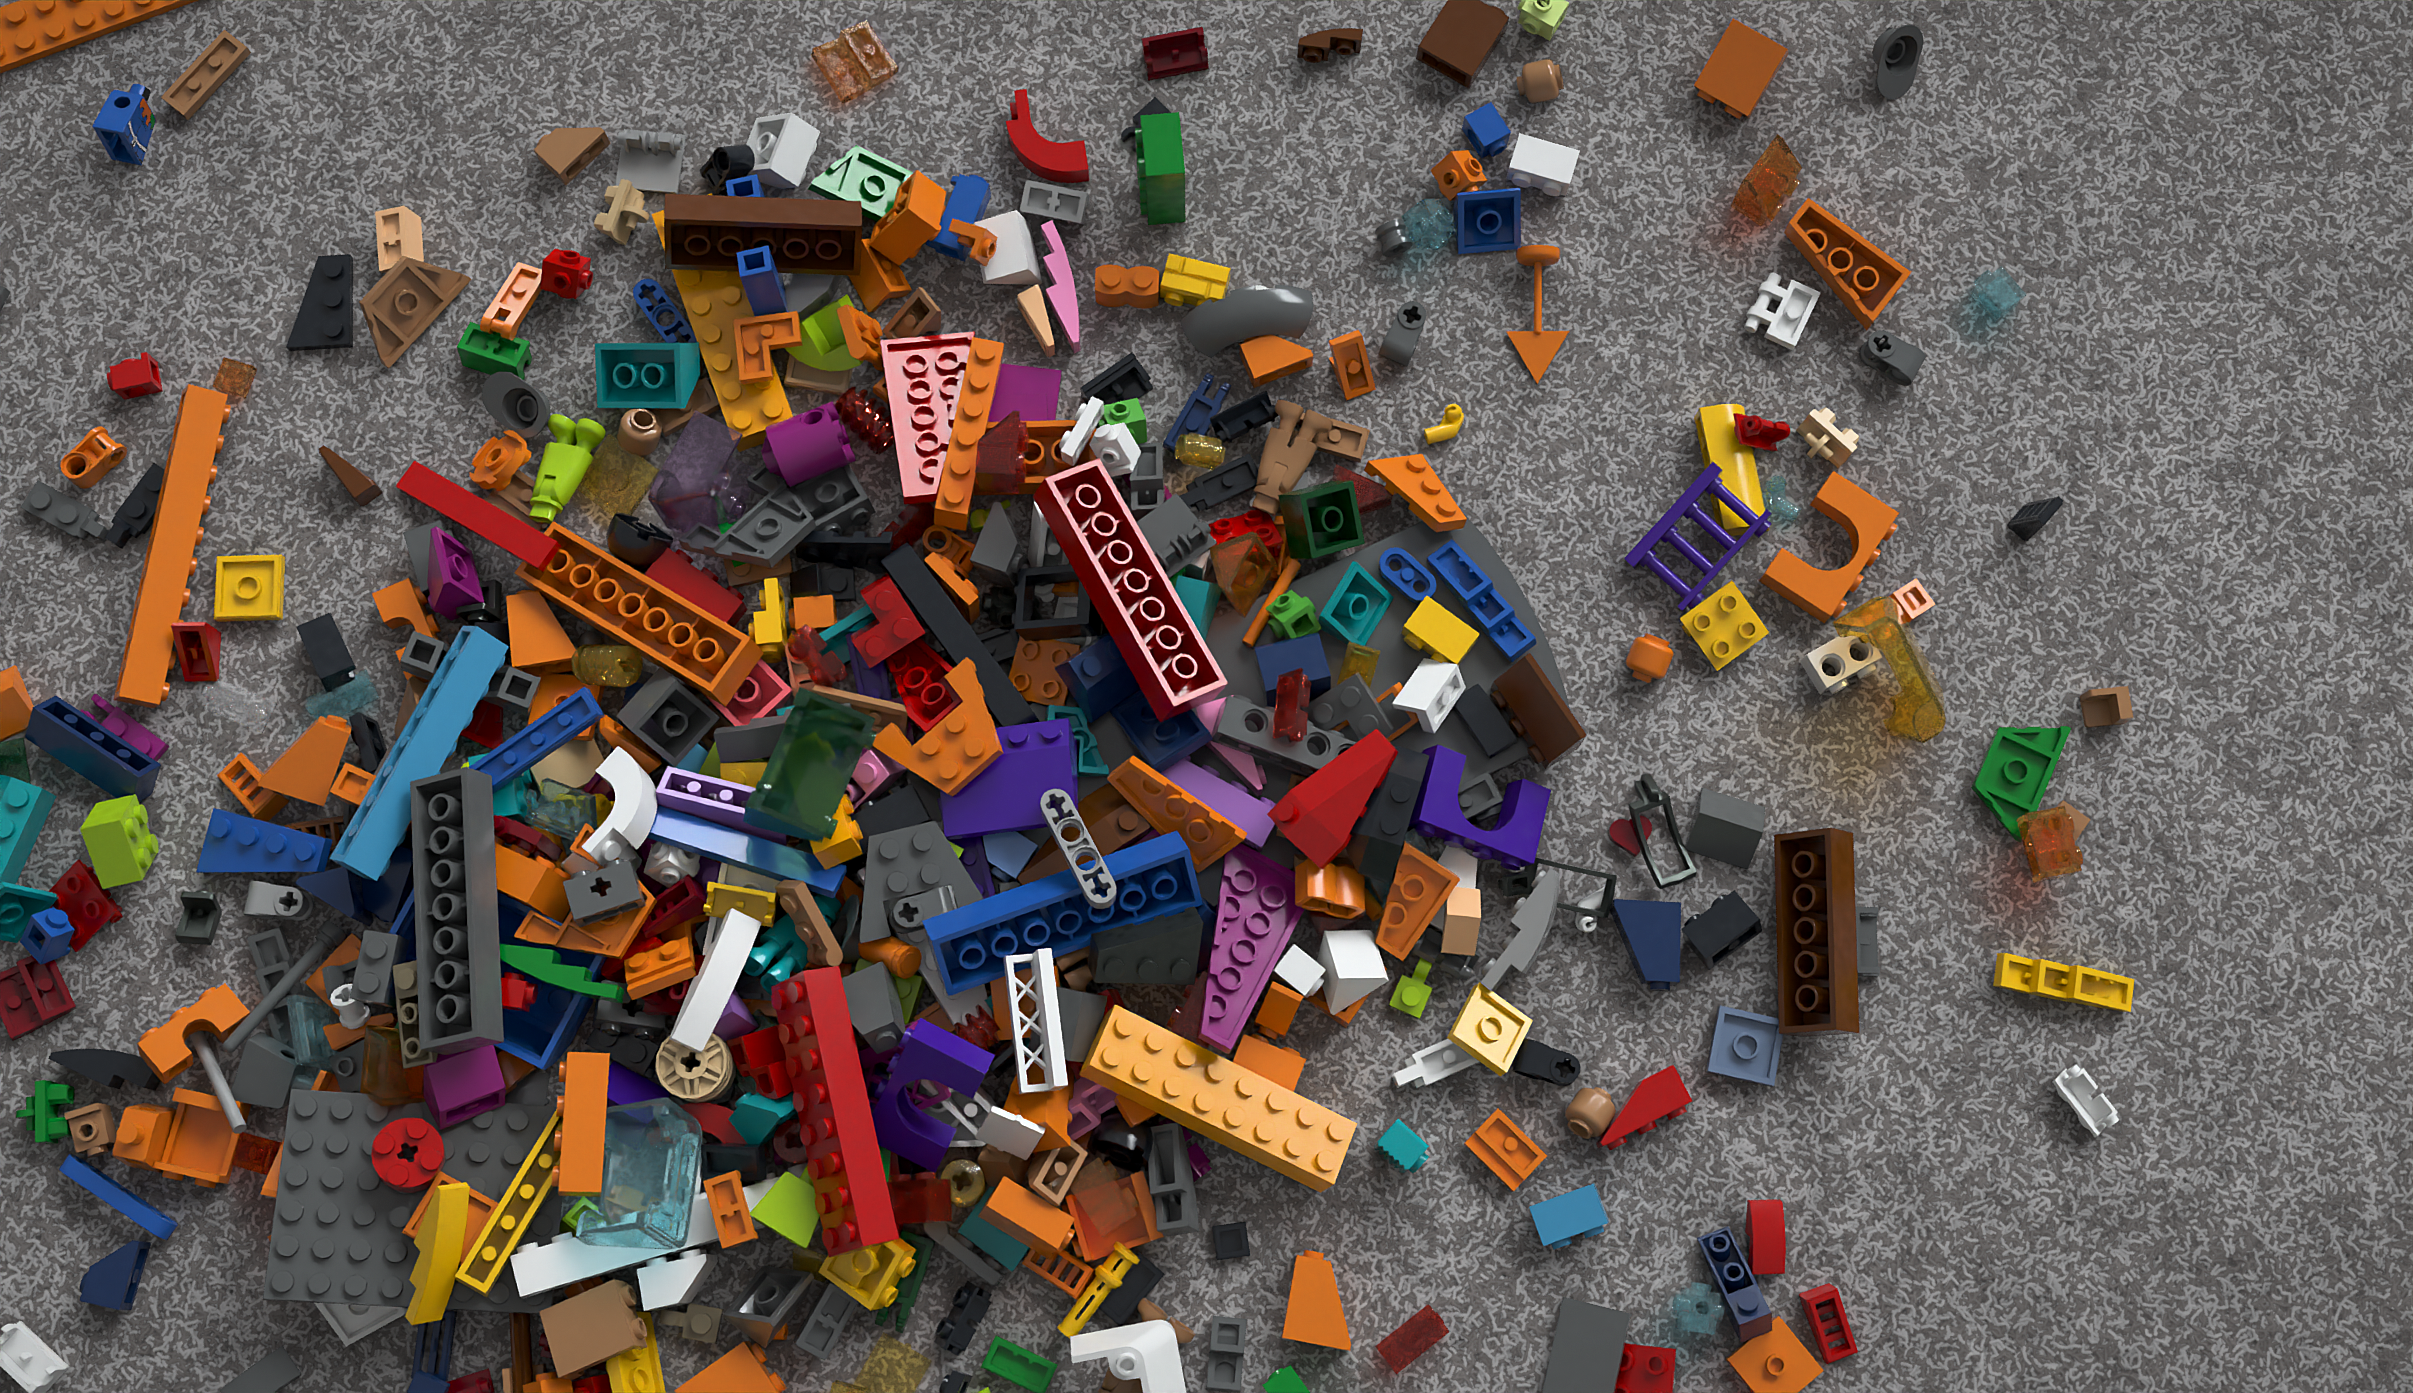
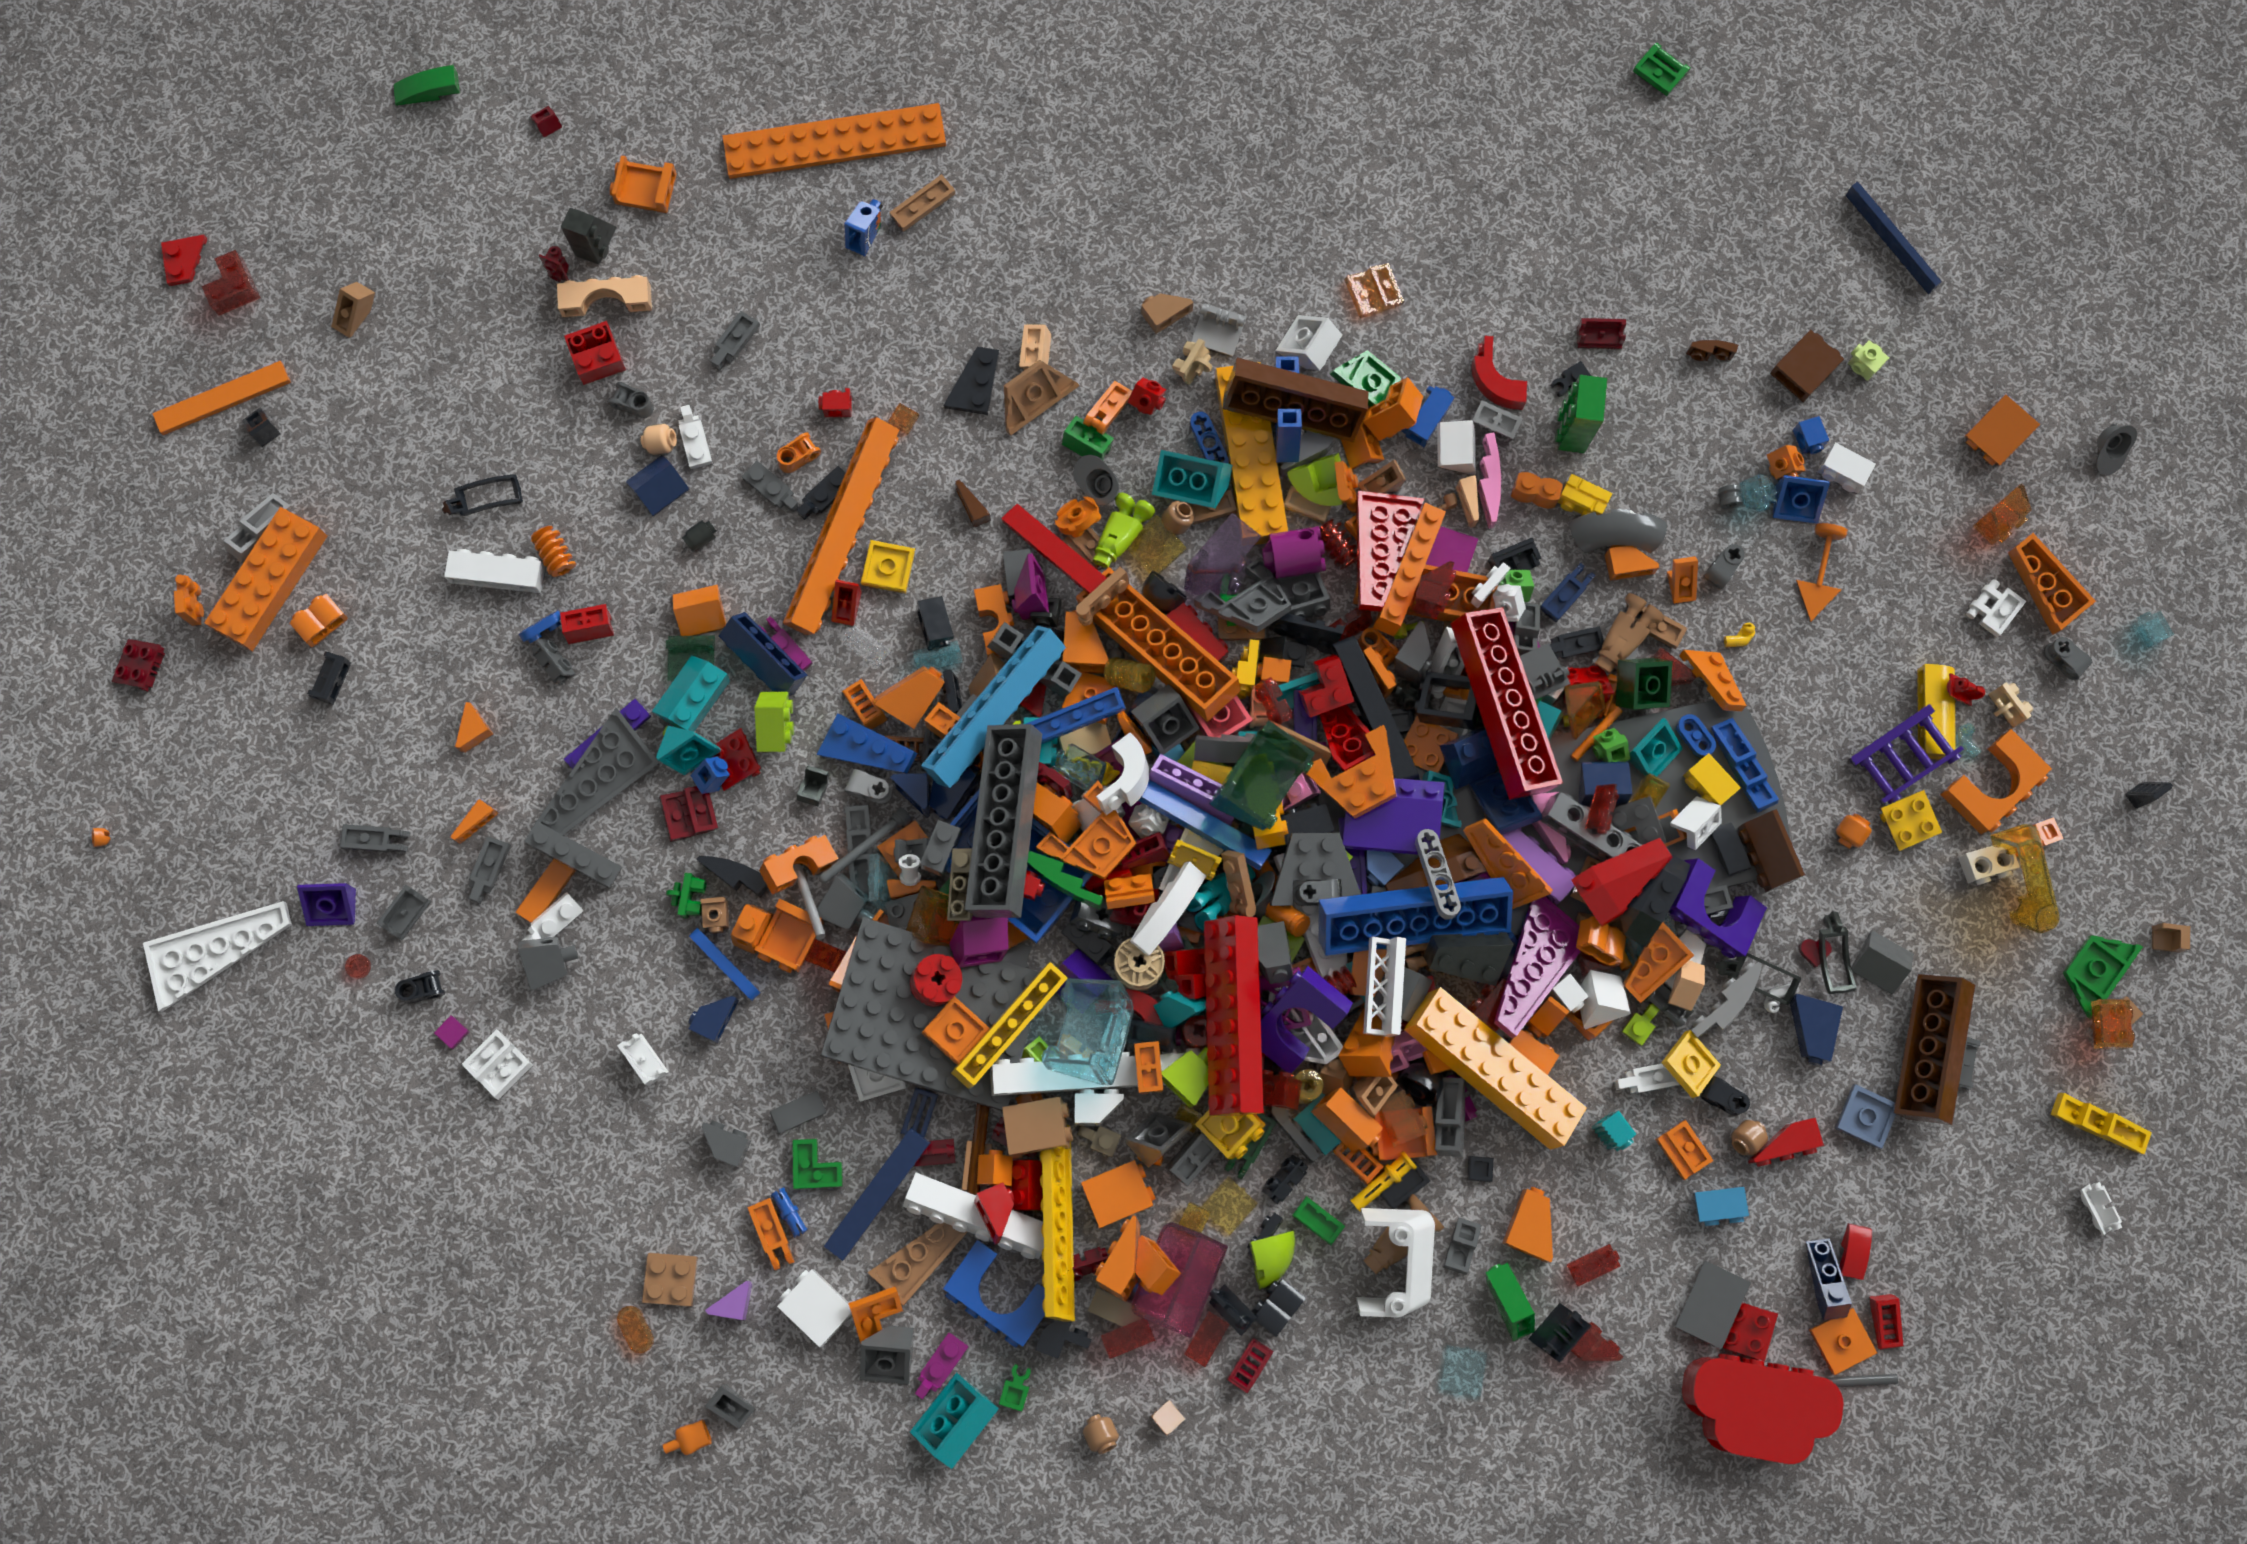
camera: 10 degrees right, 0 degrees up
(441, 1246) = (949, 1047): yellow slope -> none
(546, 564) = (1102, 596): none -> medium nougat plate
(583, 1124) = (1059, 986): orange brick -> none
(622, 892) = (1093, 837): dark grey brick -> none
(727, 164) = (1274, 345): black piece -> none
(756, 339) = (1276, 470): orange plate -> none
(975, 237) = (1439, 432): orange bracket -> none
(1010, 1132) = (1350, 1058): white piece -> none
(1014, 329) = (1450, 502): none -> medium nougat hand
(1199, 450) = (1566, 616): clear yellow brick -> none
(1243, 417) = (1598, 600): black hinge -> none
(1540, 81) = (1856, 408): medium nougat head -> none
(1687, 1316) = (1798, 1290): clear light blue brick -> none
(1721, 929) = (1867, 1031): black brick -> none

